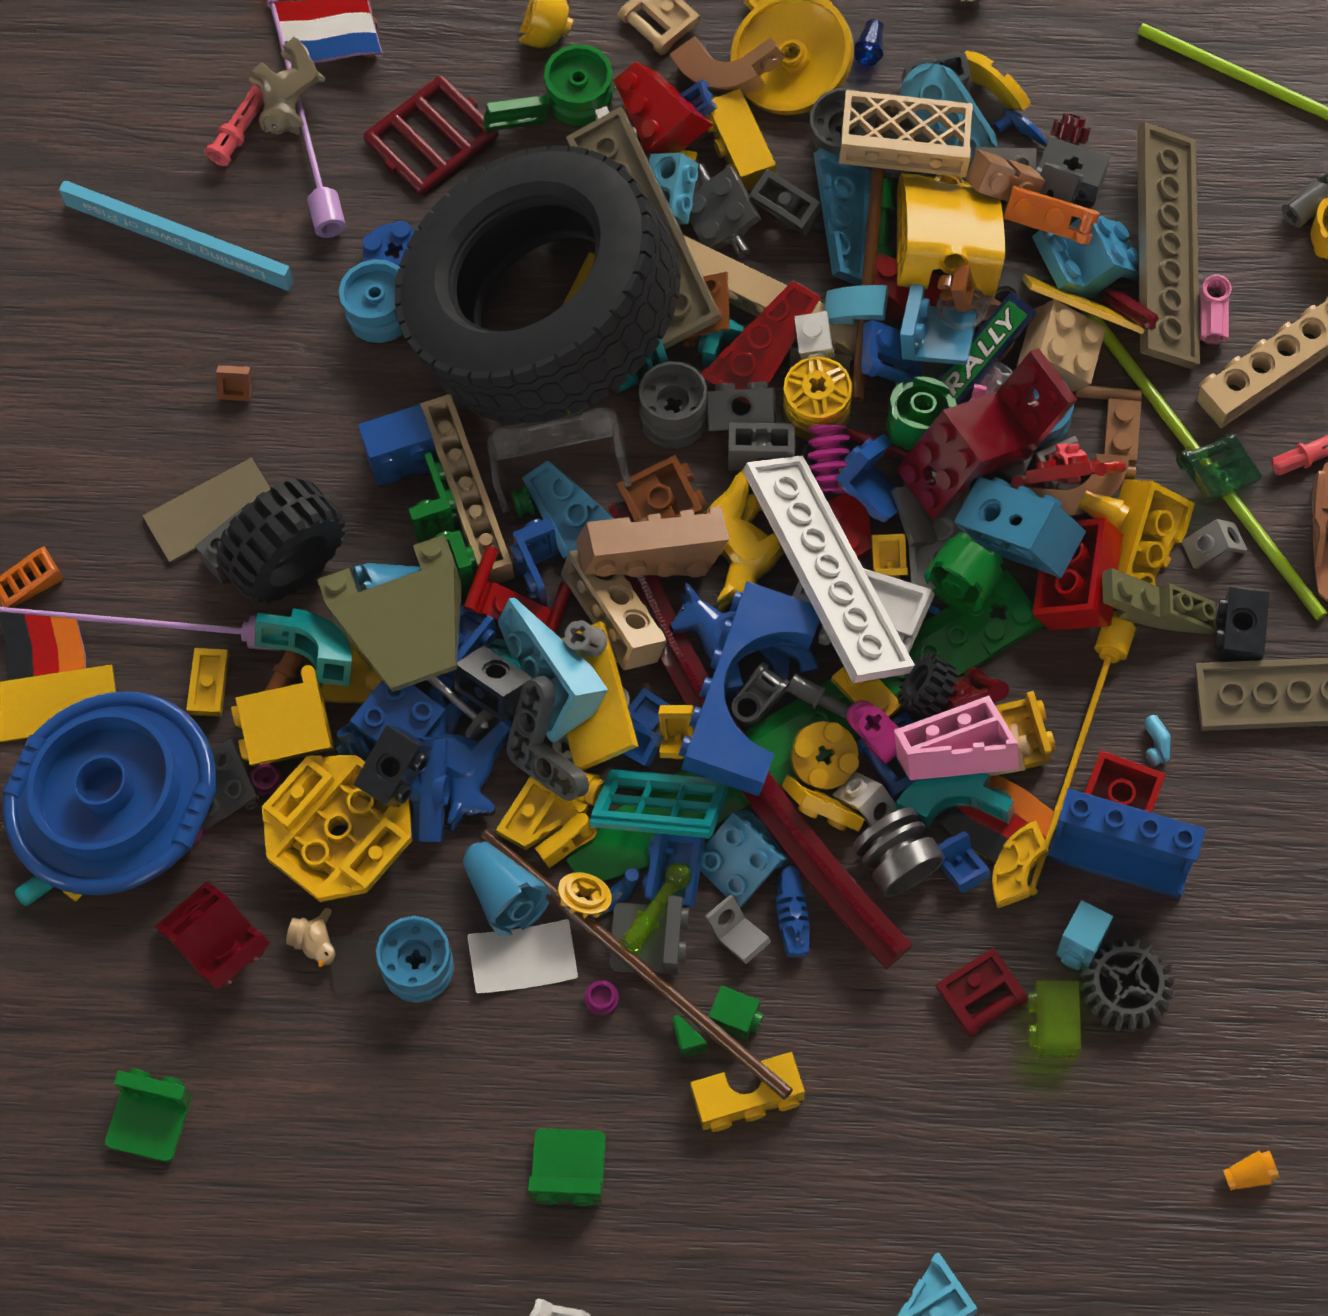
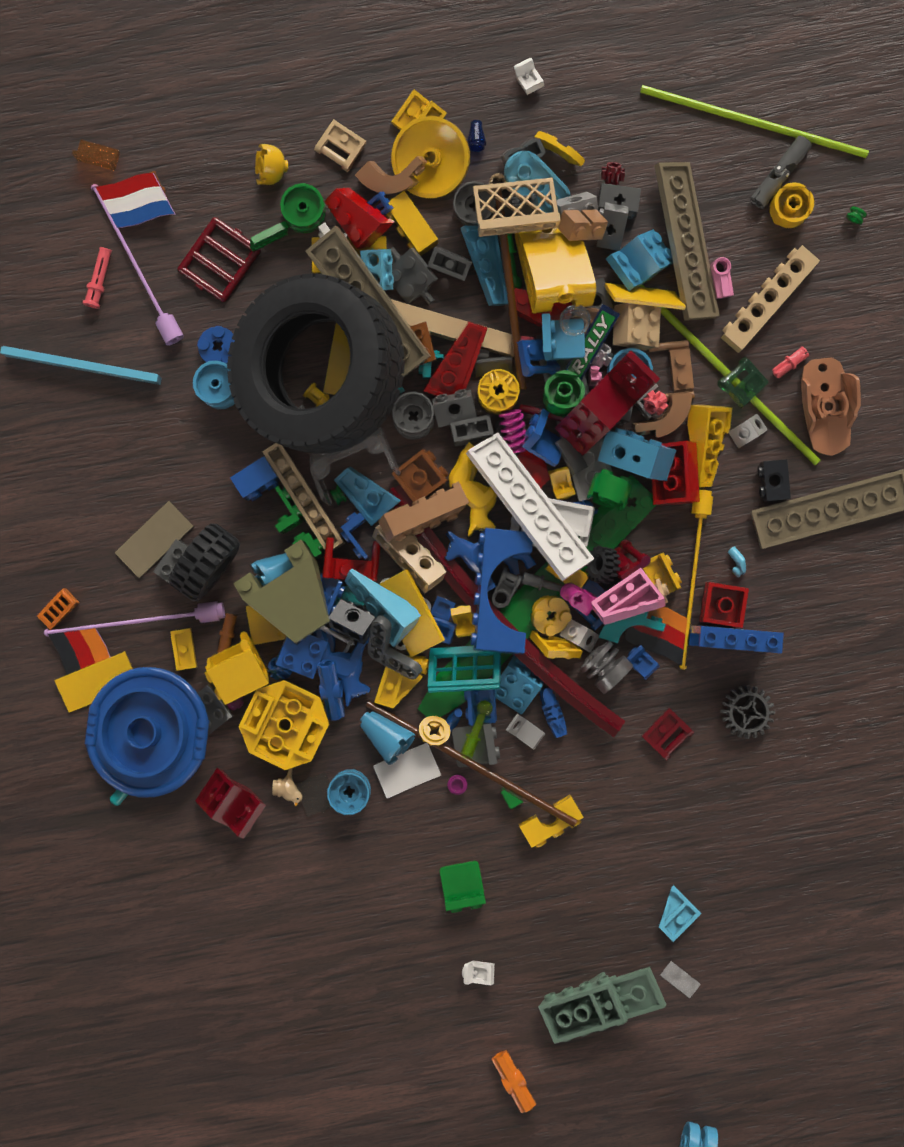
camera: 20 degrees left, 20 degrees up
(148, 1115) = (223, 911): green bracket -> none
(234, 383) = (145, 456): dark orange tile -> none
(284, 89) = (121, 252): dark tan animal -> none
(310, 637) = (240, 615): teal arch -> none
(376, 773) = (301, 697): black brick -> none
(567, 839) = (414, 699): yellow bar -> none
(582, 641) = (400, 584): light grey bush -> none
(736, 1013) = (534, 778): green brick -> none
(814, 335) = (488, 355): white bracket -> none
(856, 302) = (508, 328): medium azure slope -> none
(958, 288) = (571, 311): dark orange tile -> none
(1015, 864) = (672, 654): yellow tile -> none
(1021, 123) = (573, 169): blue bar -> none
(1050, 214) = (615, 245): orange plate -> none
(1055, 1019) = (712, 741): clear neon green brick -> none
(1076, 467) = (662, 414): red plate -> none
(1083, 936) = (719, 694): medium azure brick -> none
(1104, 507) = (683, 430): yellow cone -> none
(1130, 308) = (673, 292): dark red axle -> none
(1158, 607) = (725, 481): olive slope -> none
(1252, 1171) = (835, 801): light orange cone -> none

